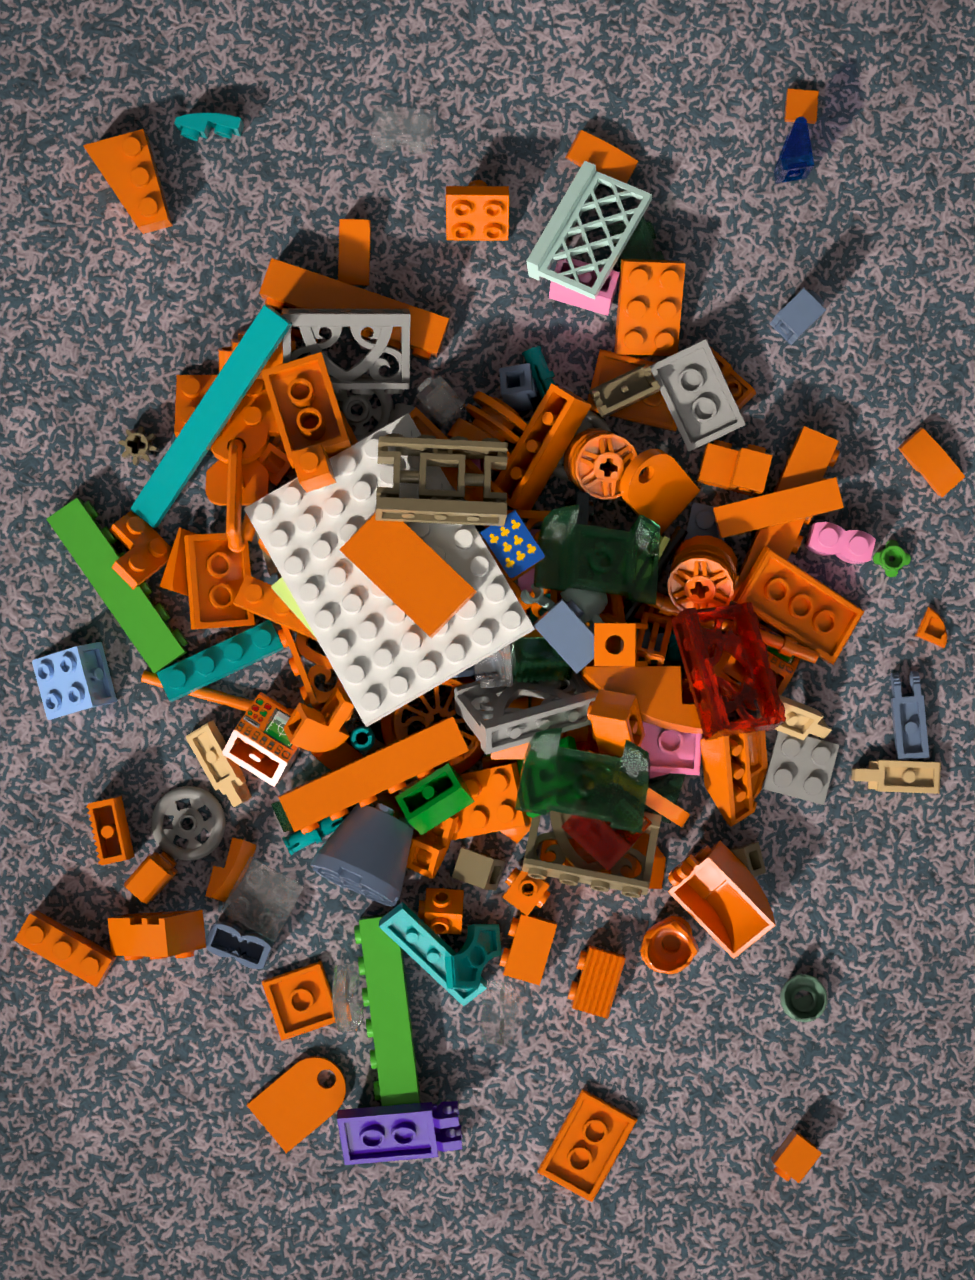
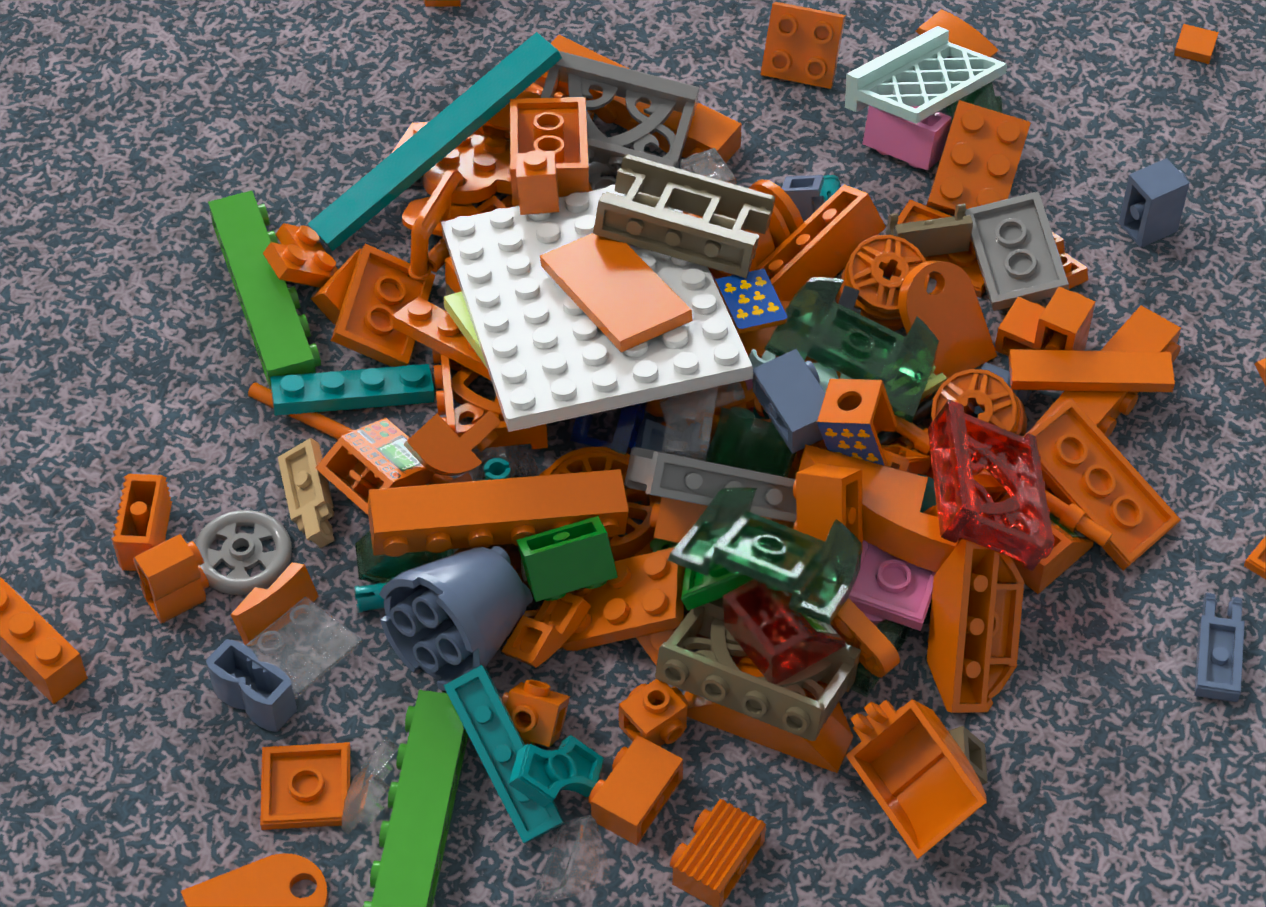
camera: 15 degrees right, 35 degrees down
(74, 680) = (168, 362): light blue bracket -> none
(142, 453) = (341, 169): dark tan gear -> none
(157, 934) = (152, 631): orange wedge -> none
(354, 251) = (657, 50): orange slope -> none
(478, 869) = (598, 683): dark tan brick -> none
(669, 945) = (828, 827): orange hair -> none
(796, 155) = (1179, 65): clear blue tile -> none
(801, 767) = (1062, 672): light grey plate -> none
(802, 720) = (1067, 595): tan hinge -> none
(831, 539) = (1167, 437): bright pink brick -> none
(892, 549) = (1231, 465): bright green plate -> none
(900, 776) = (1195, 709): tan hinge -> none

